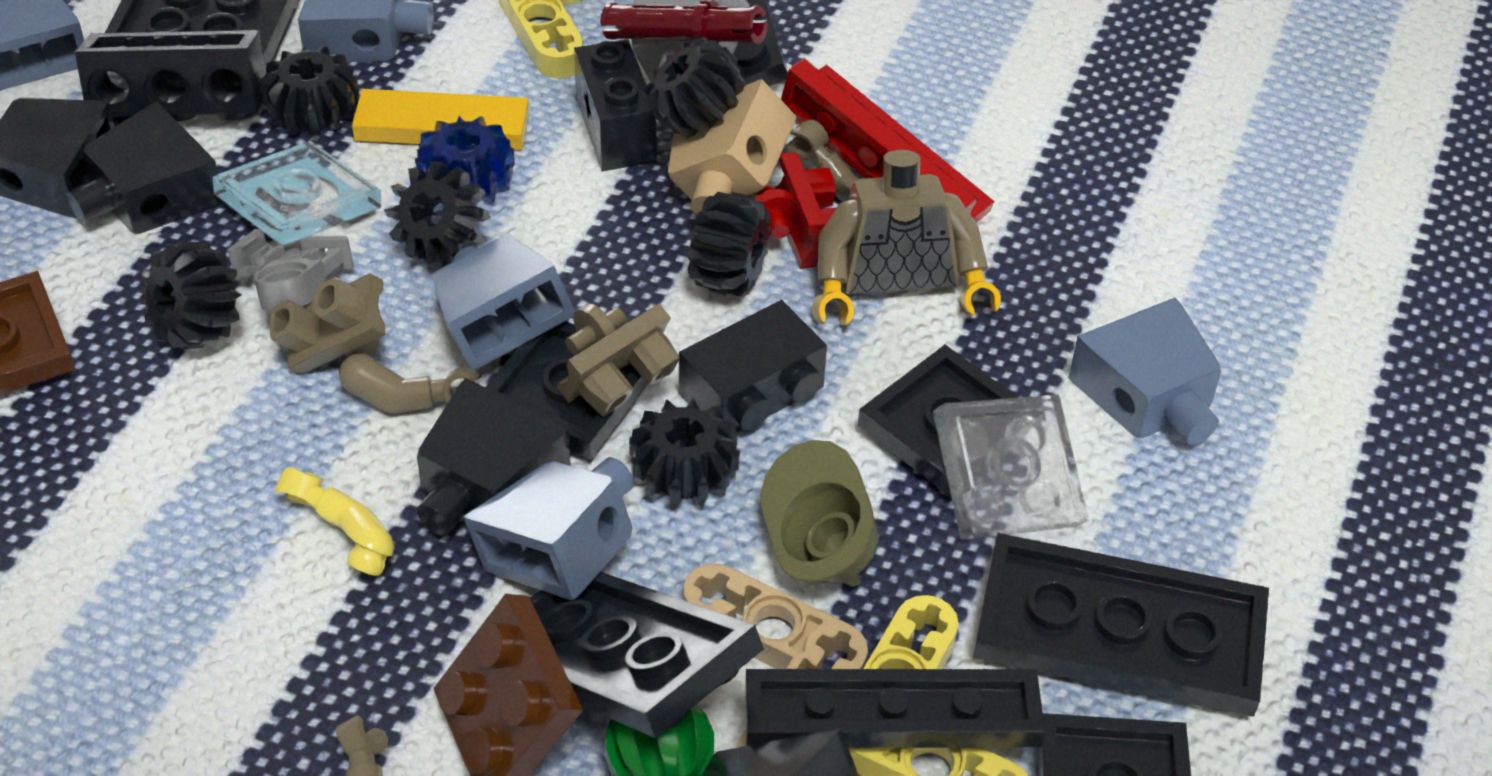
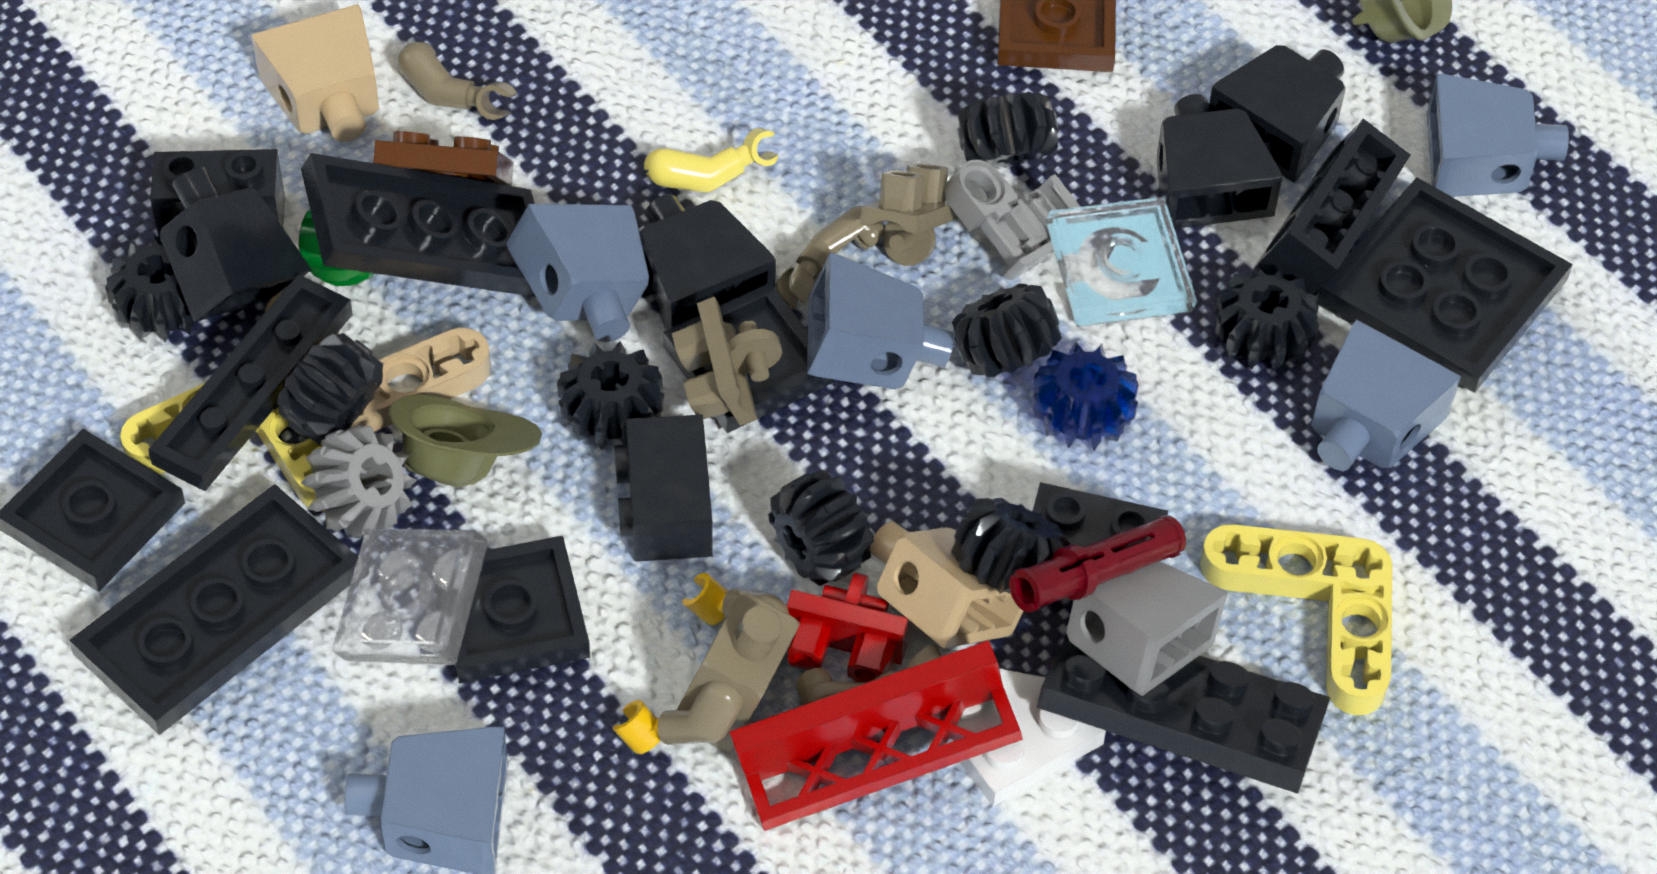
camera: 120 degrees right, 5 degrees up
(404, 115) = (1177, 419): yellow tile -> none
(870, 609) = (330, 387): none -> black gear
(931, 564) = (358, 481): none -> light grey gear

